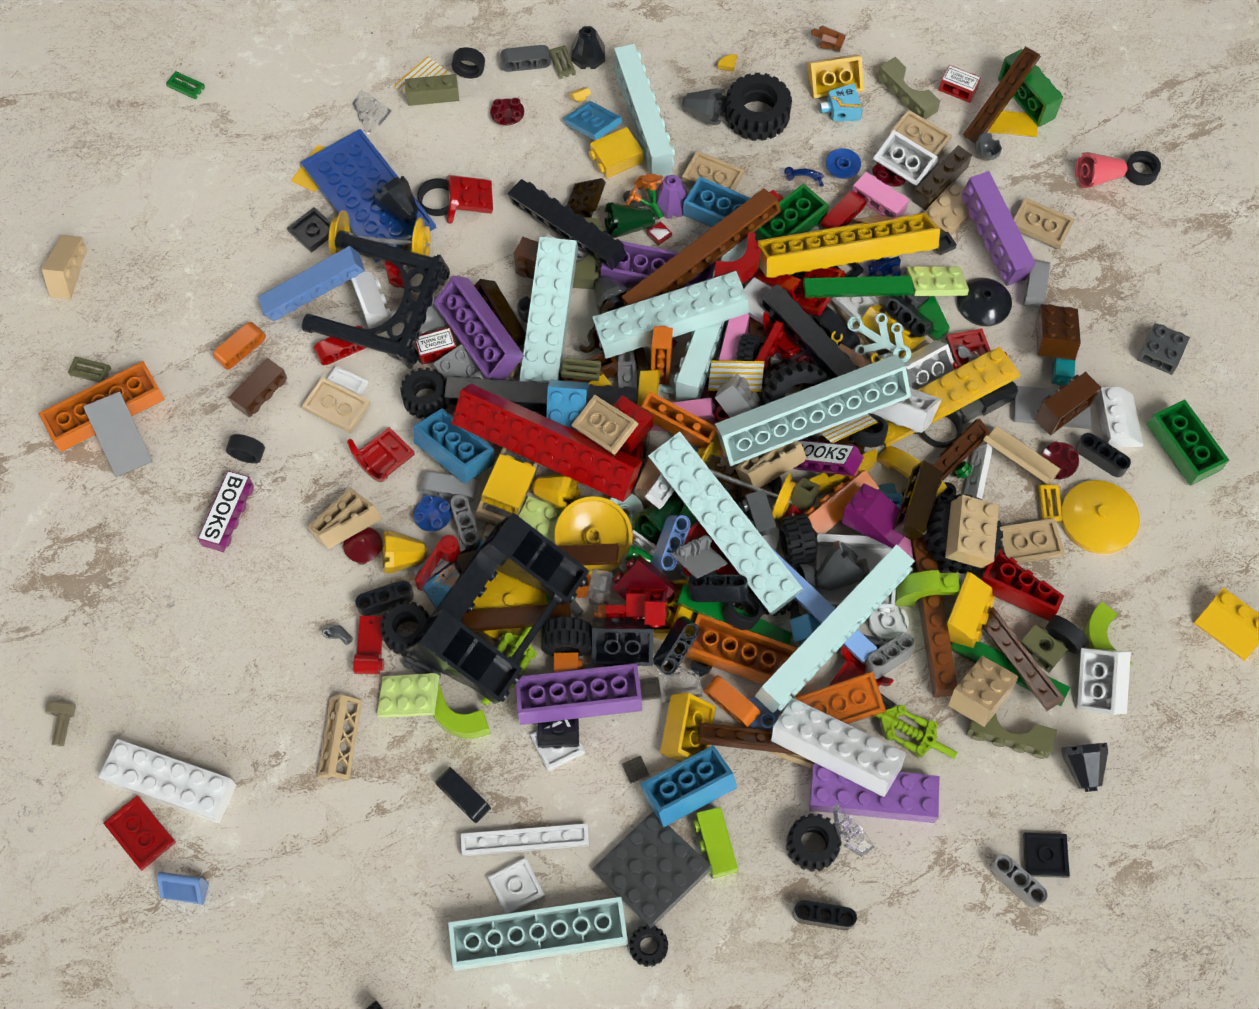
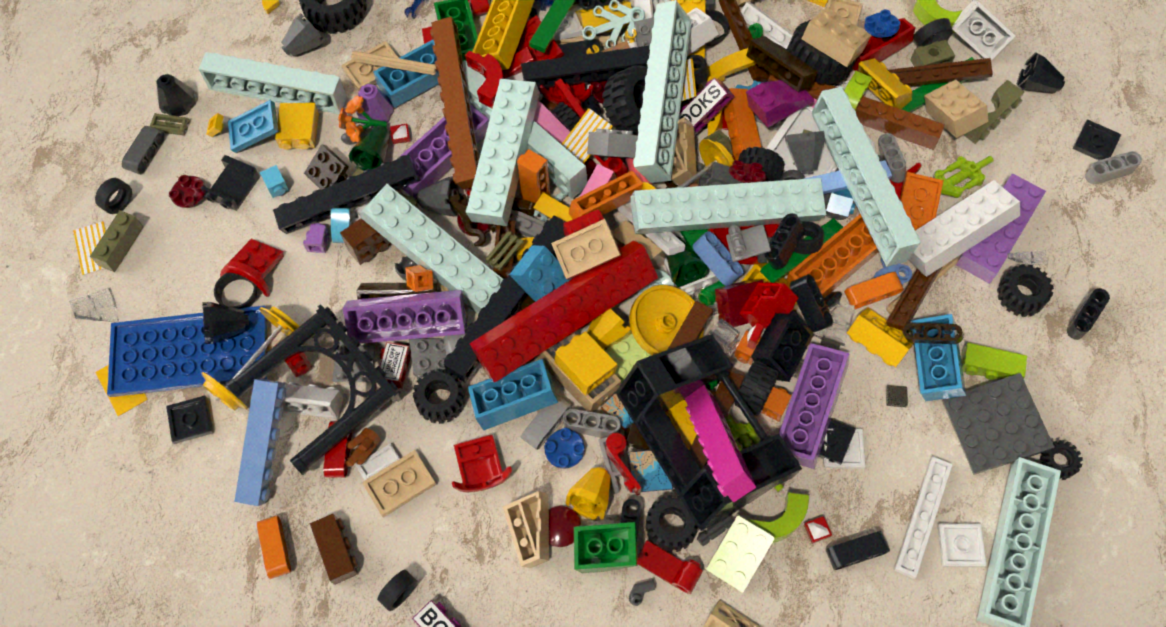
camera: 60 degrees left, 0 degrees up
(354, 580) = (605, 547): none -> green slope
(356, 361) = (365, 443): none -> dark orange rock
(466, 754) = (817, 529): none -> tile
(471, 611) = (719, 445): none -> dark pink brick
(516, 318) = (419, 278): none -> orange brick
(518, 227) = (316, 238): none -> medium lavender brick
(531, 139) = (232, 184): none -> black panel
(541, 229) = (339, 221): none -> medium azure panel
(552, 166) = (274, 181): none -> medium azure brick
(703, 772) = (948, 328): none -> dark brown beam
(715, 183) = (392, 62): none -> tan axle
(770, 523) = (747, 172): none -> dark red dish
(1037, 576) = (882, 24): none -> blue dish

